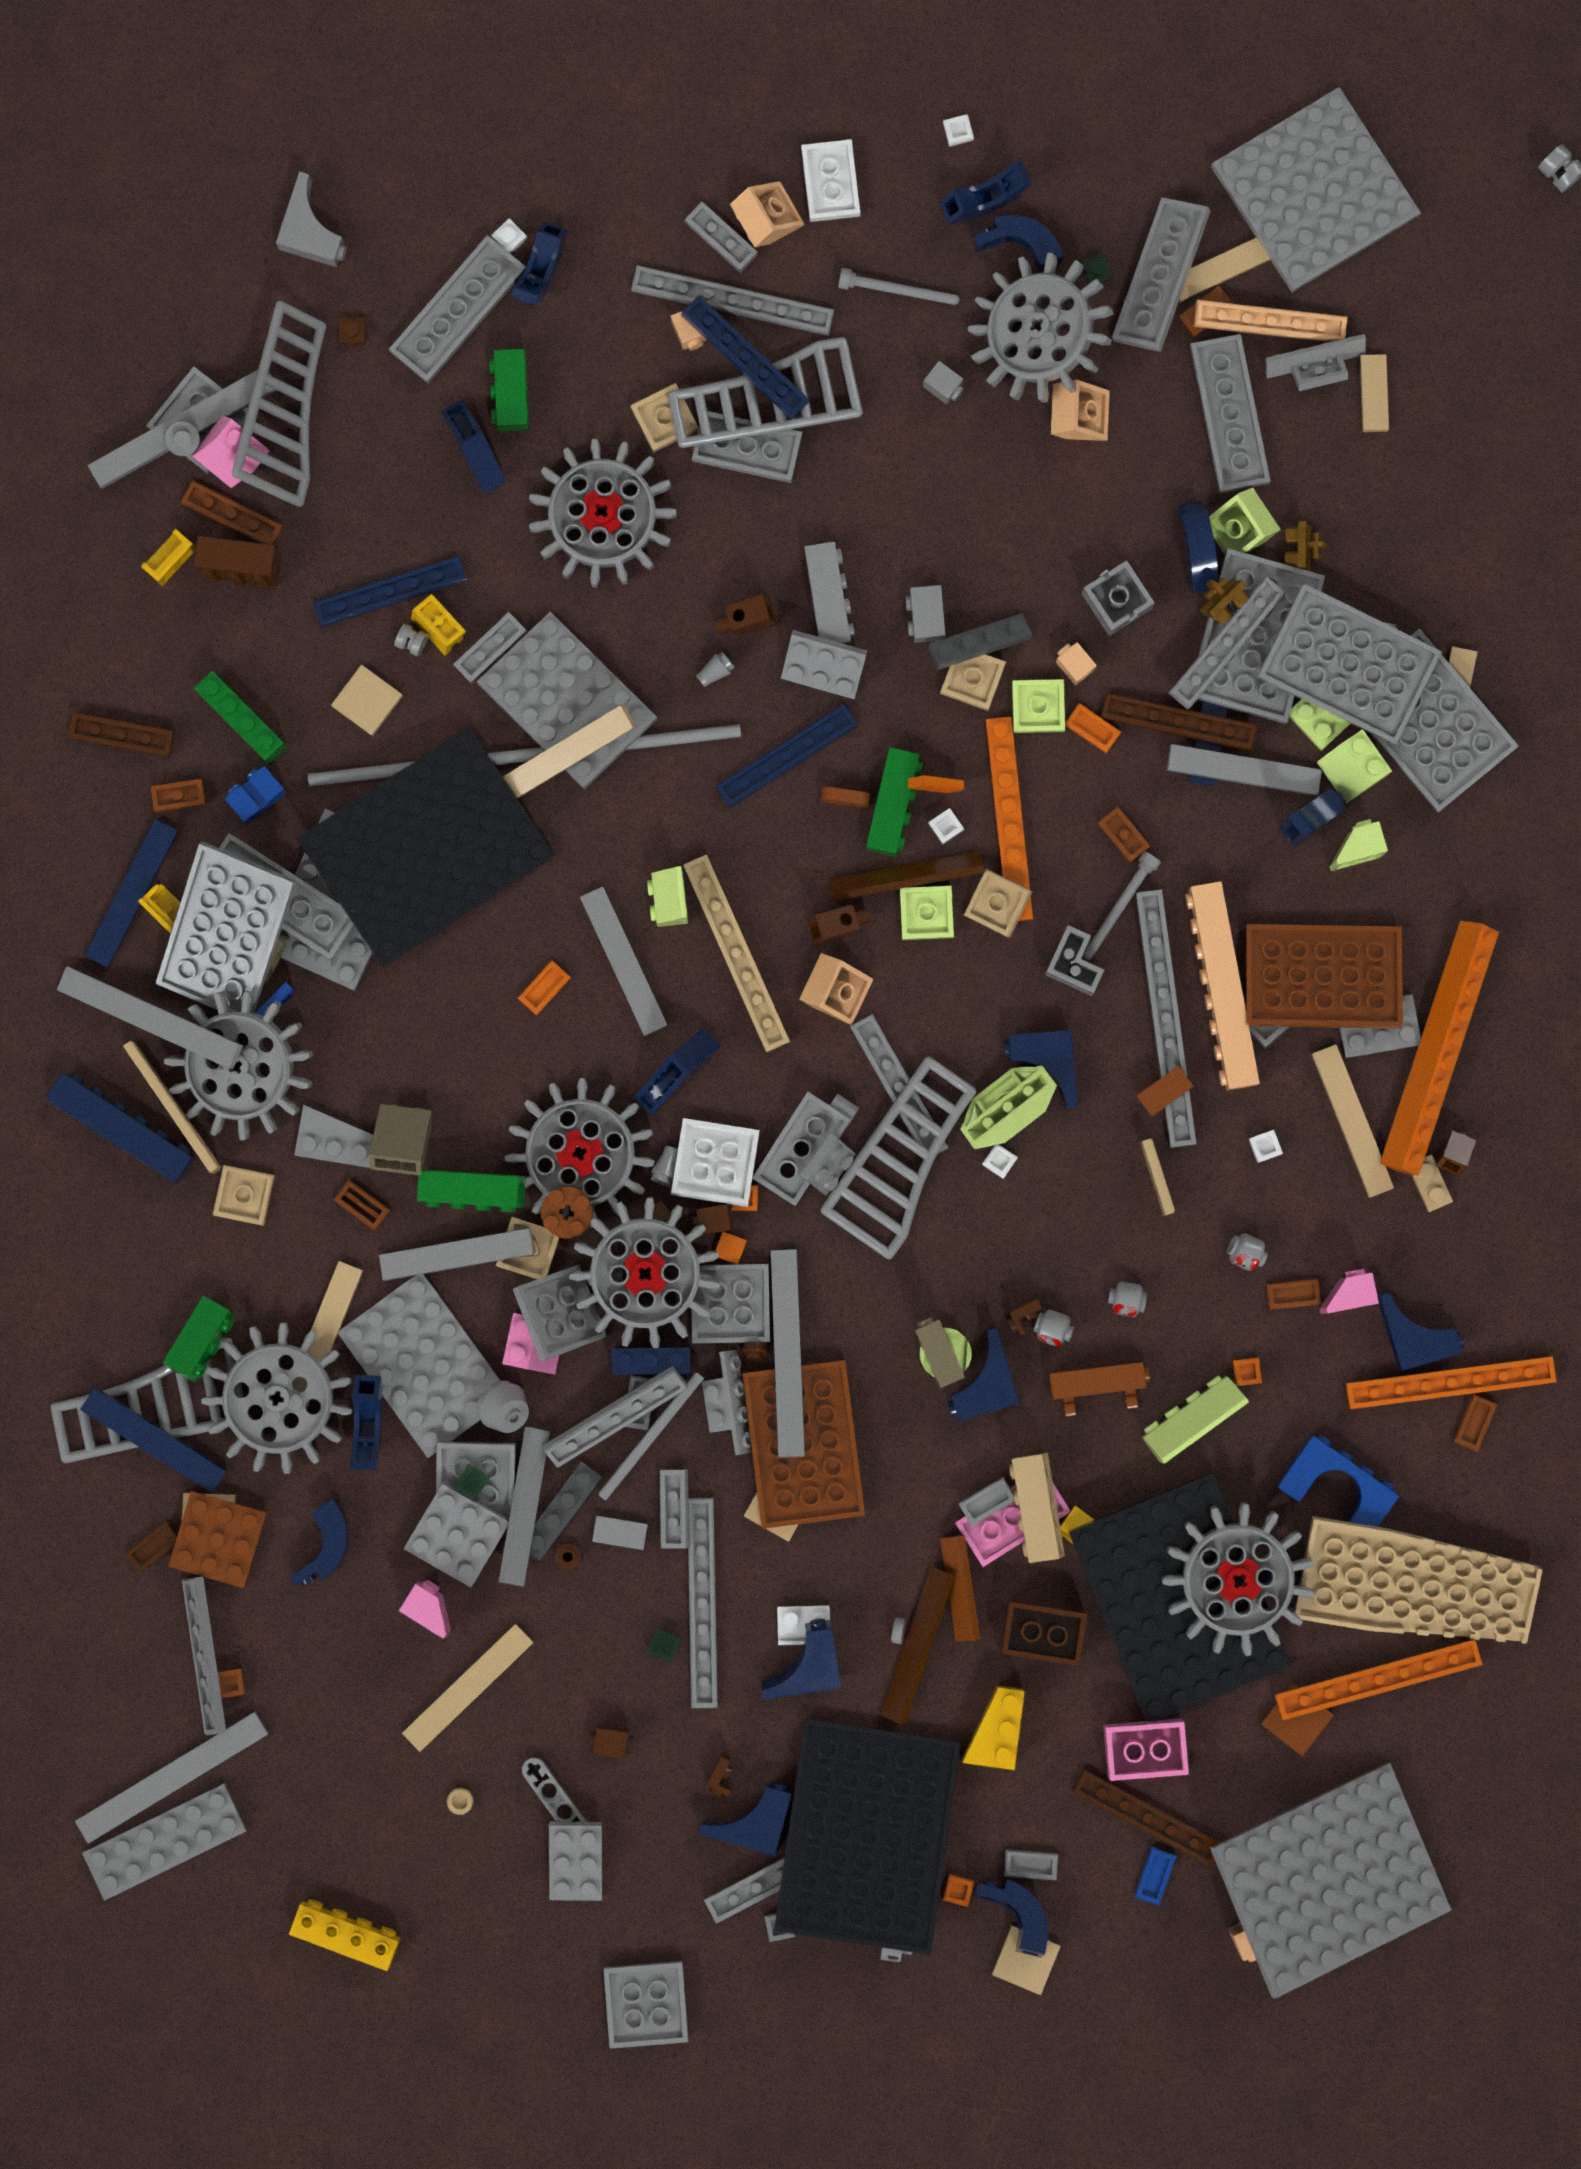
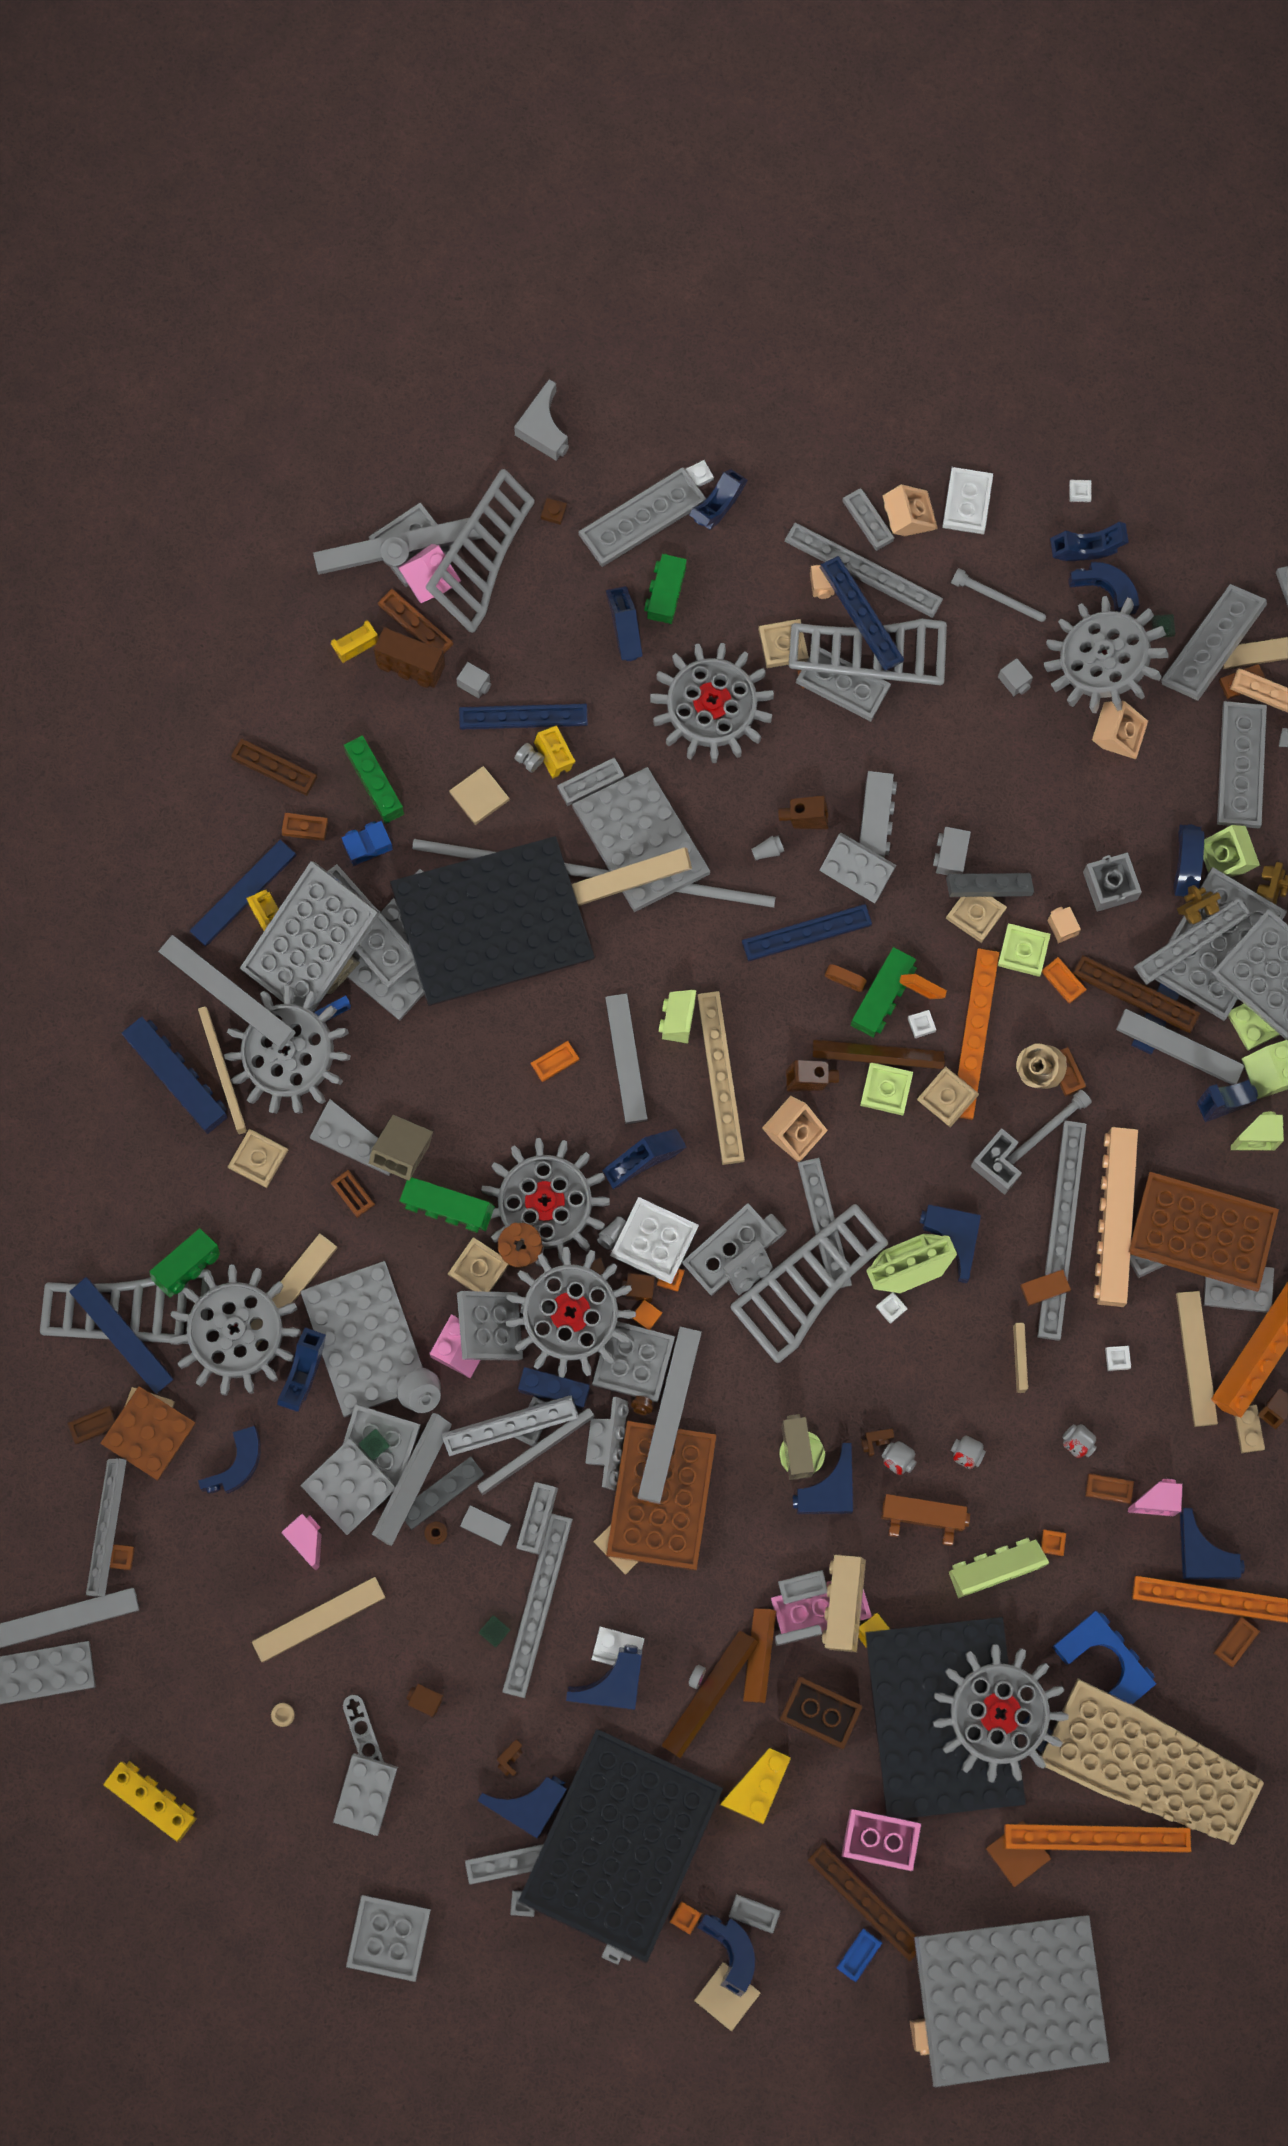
camera: 10 degrees right, 10 degrees down
(320, 565) = (474, 680): none -> light grey brick
(456, 1254) = (418, 1255): light grey tile -> none
(995, 1556) = (797, 1635): none -> light grey tile
(1084, 848) = (1035, 1076): none -> tan brick

